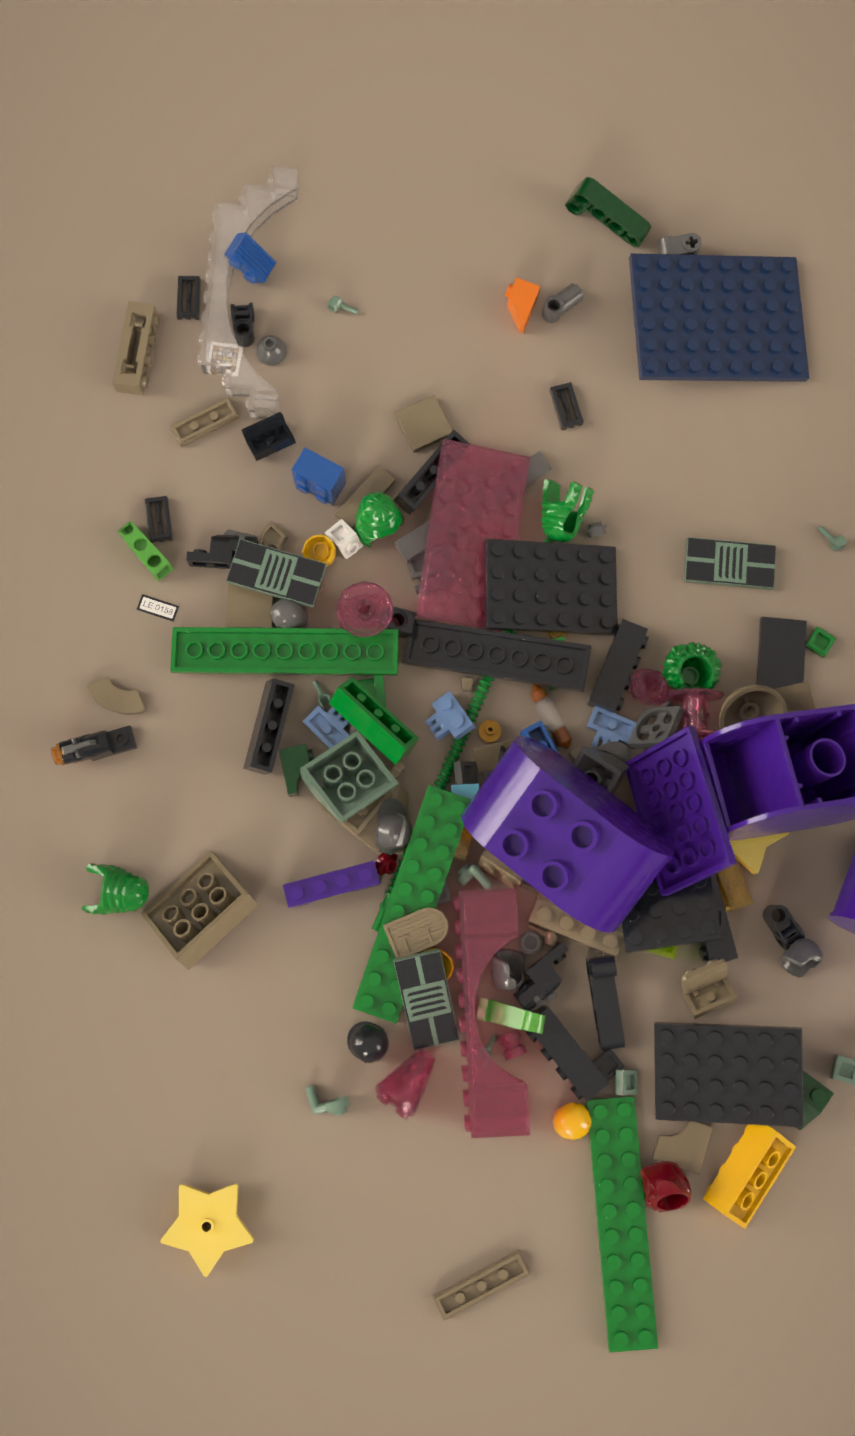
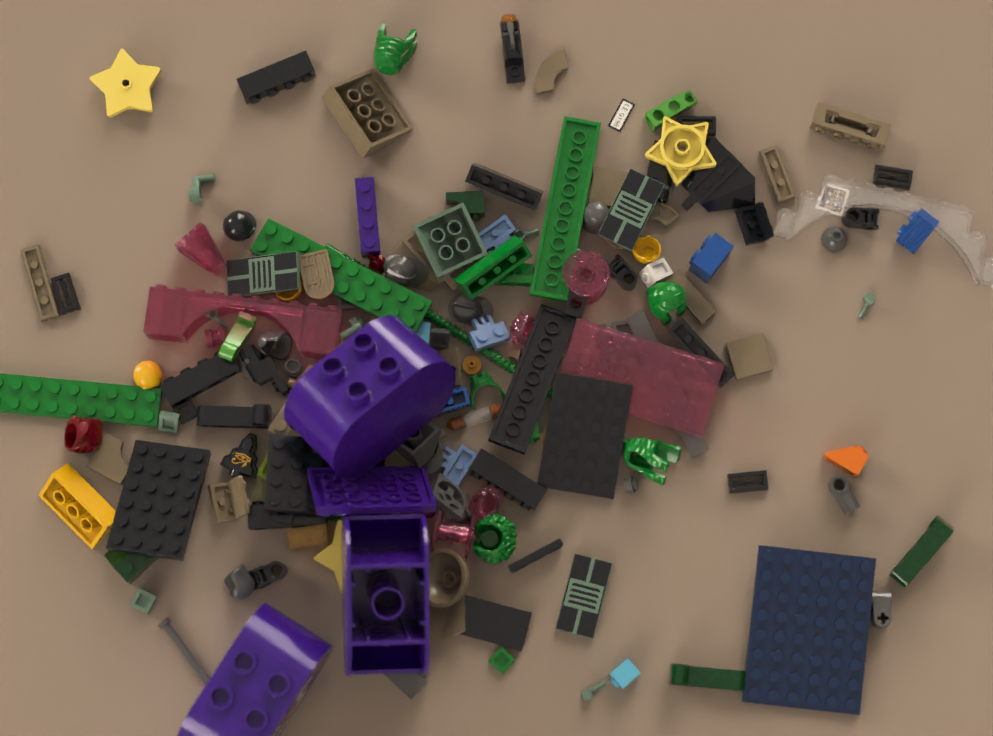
camera: 100 degrees right, 0 degrees up
(170, 1031) = (276, 77): none -> black brick
(190, 510) = (677, 136): none -> light yellow plate
(218, 488) = (723, 186): none -> black panel
(348, 575) = (619, 270): none -> black piece
(427, 749) = (463, 309): none -> dark grey piece
(438, 680) = (521, 328): none -> clear pink hair
(502, 1229) = (70, 308): none -> black tile
(508, 716) = (479, 381): none -> green helmet
(654, 982) = (243, 458): none -> black rock
(697, 621) = (535, 556): none -> black tile
(795, 437) = (707, 677): none -> dark green beam
(808, 505) = (624, 674): none -> medium azure brick

